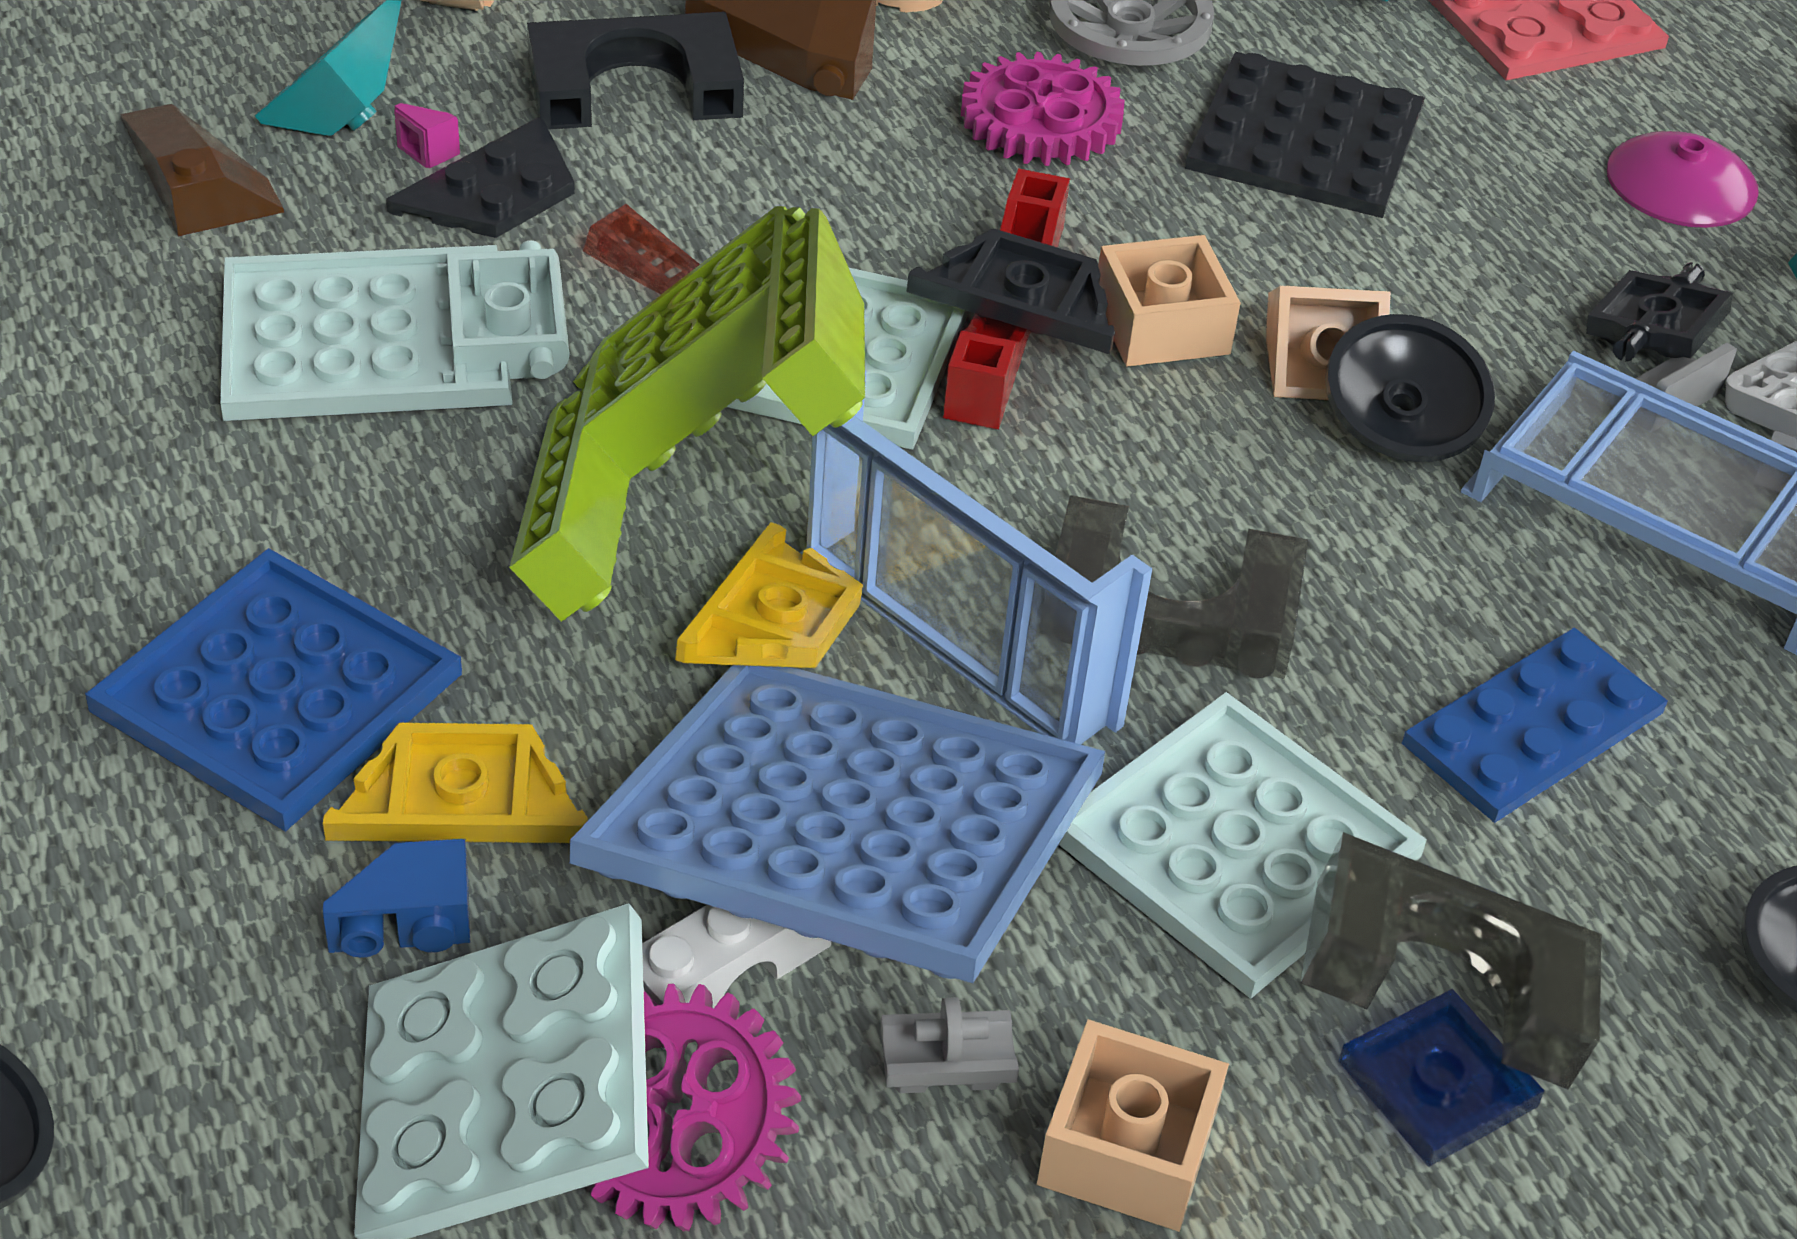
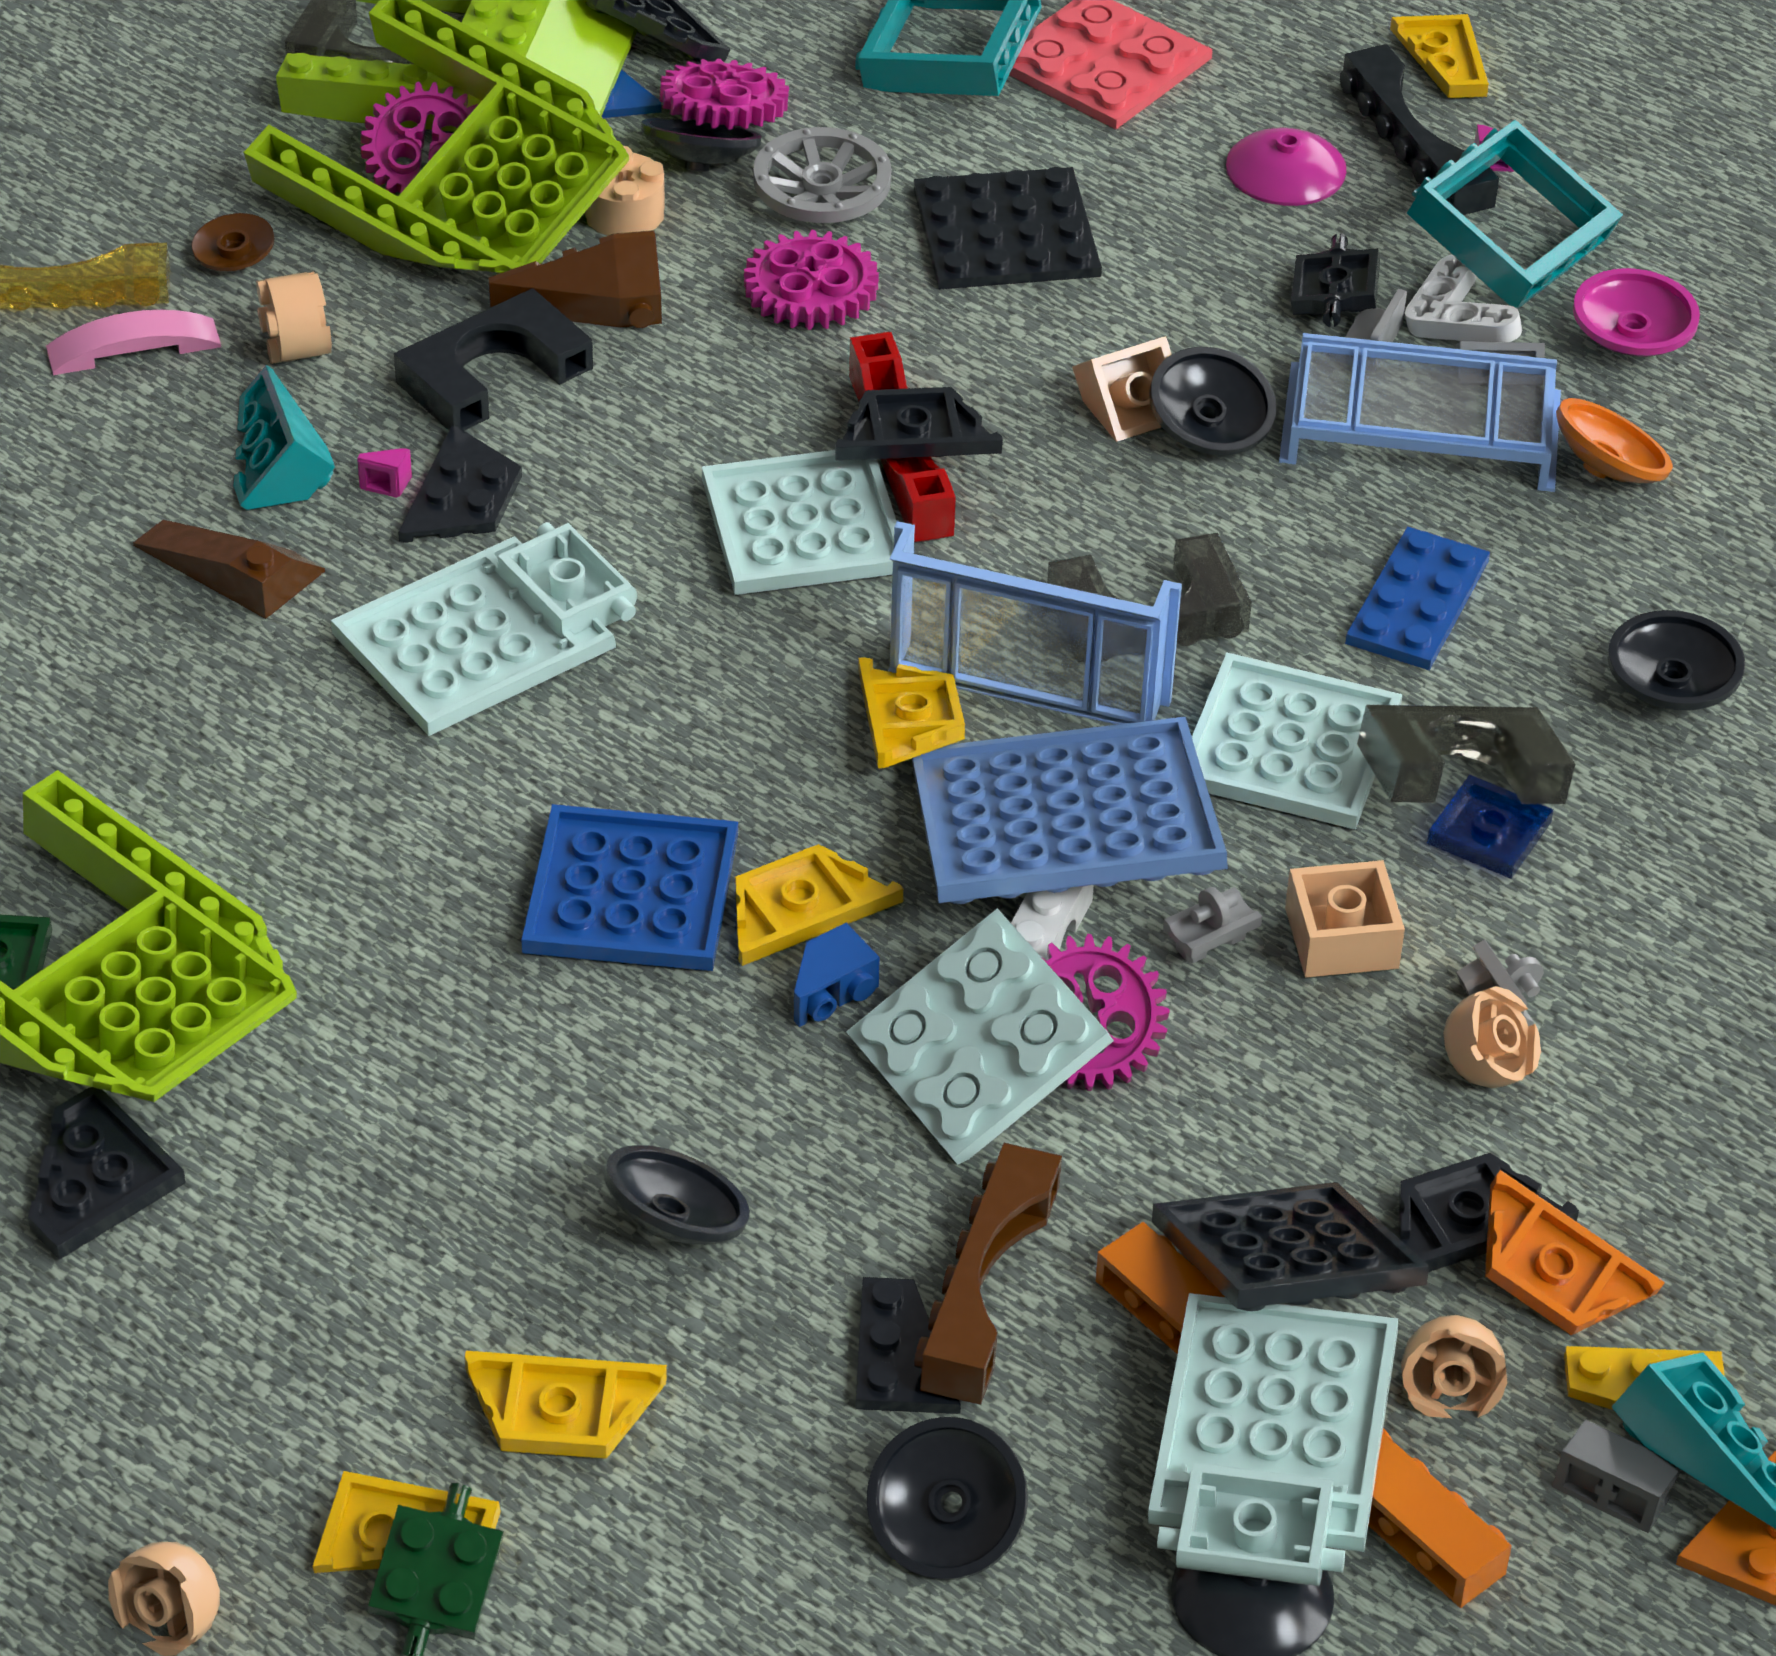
camera: 25 degrees left, 0 degrees up
(607, 246) = (593, 504): clear red slope -> none
(753, 314) = (748, 555): lime wedge -> none
(1168, 300) = (1014, 395): light nougat brick -> none

